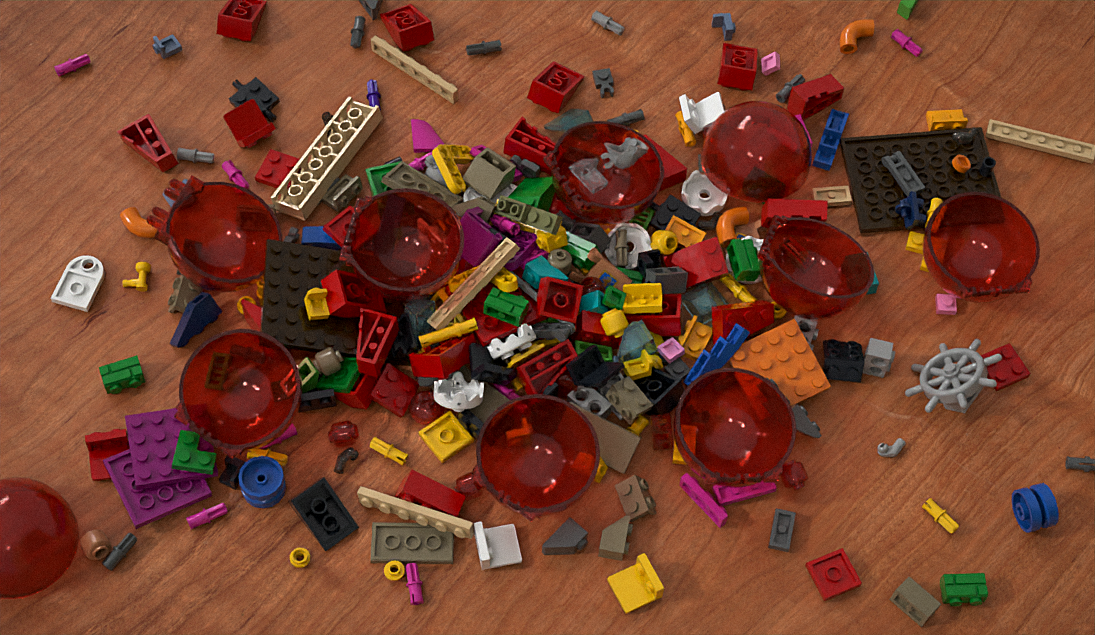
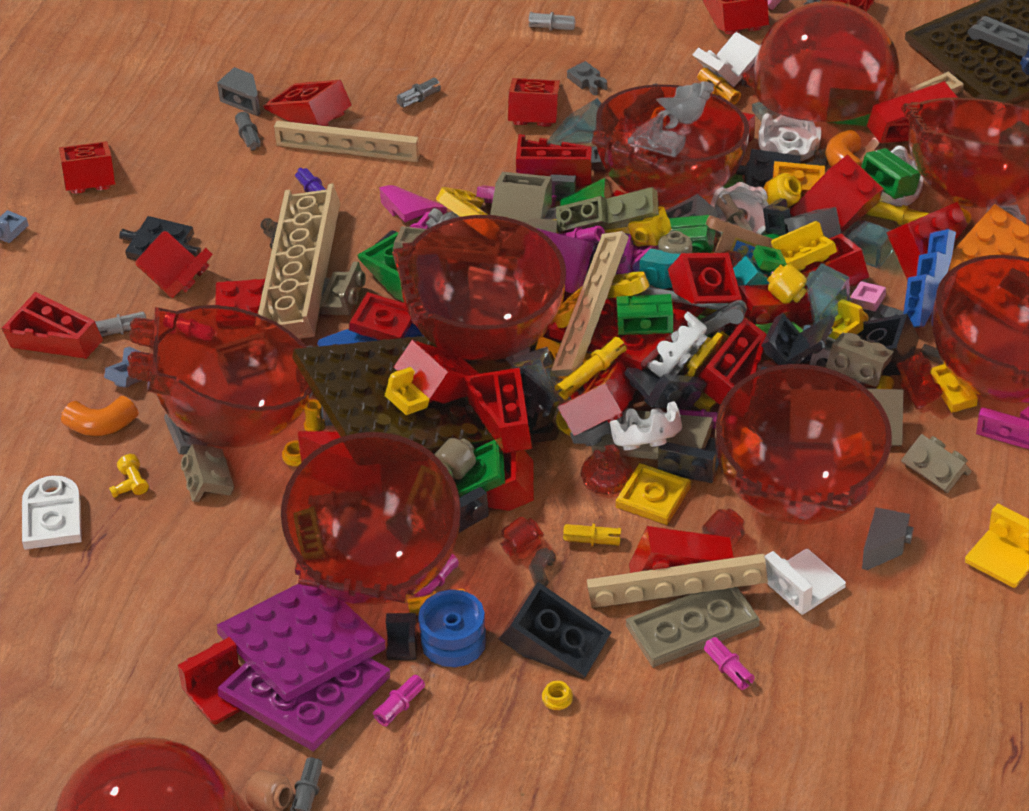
camera: 20 degrees left, 15 degrees down
(122, 375) = (178, 588): green brick -> none
(189, 458) = (337, 635): green plate -> none
(195, 317) = (238, 486): dark blue slope -> none
(393, 390) = (555, 467): red plate -> none
(394, 576) = (691, 660): yellow plate -> none
(613, 539) = (946, 515): dark tan slope -> none
(695, 338) = (887, 275): light orange bracket -> none
(830, 139) = (896, 29): blue slope -> none

